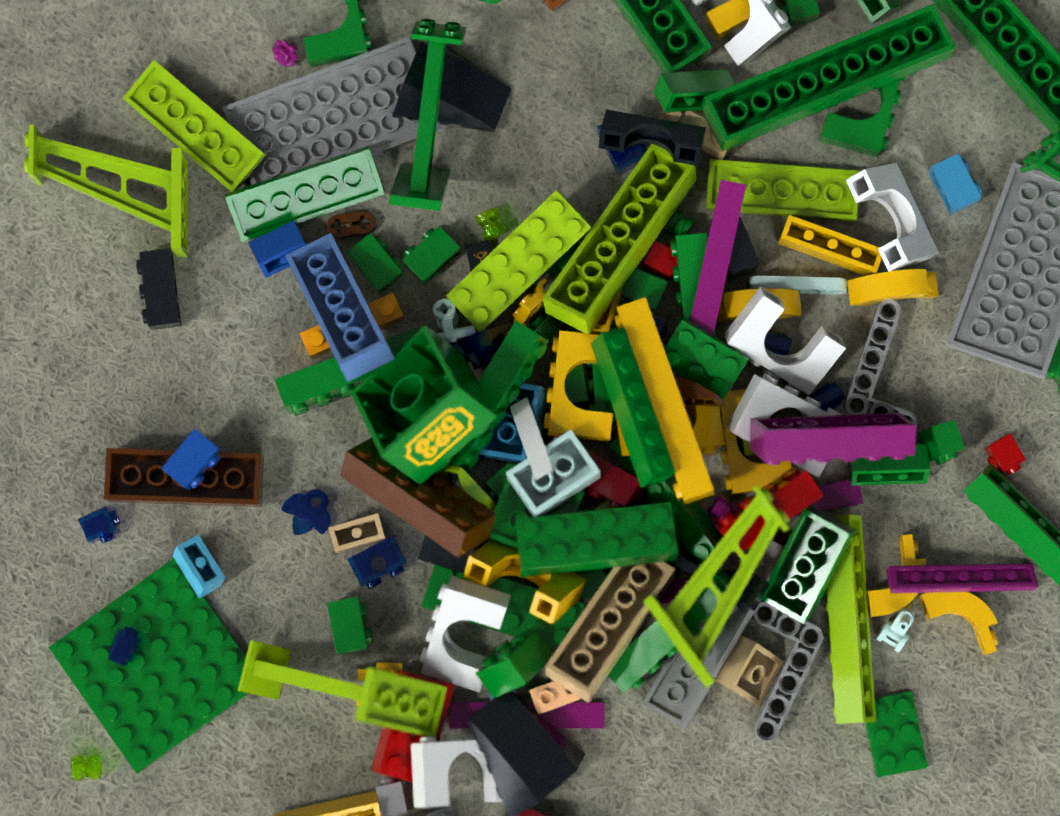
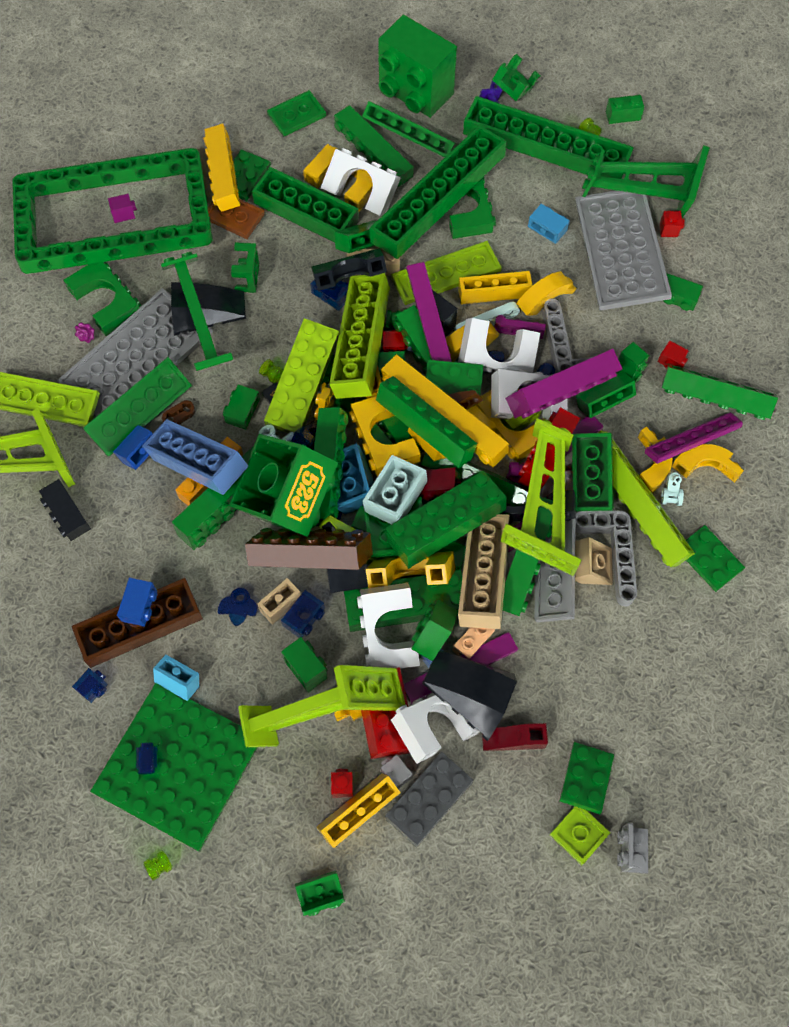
camera: 25 degrees left, 15 degrees down
(325, 781) = (341, 783): none -> red brick
(375, 263) = (207, 425): green brick -> none
(531, 438) = (368, 473): white sticker -> none
(539, 52) = (247, 267): none -> green panel
(832, 316) = (509, 326): none -> magenta plate
(890, 189) = (505, 239): white arch -> none

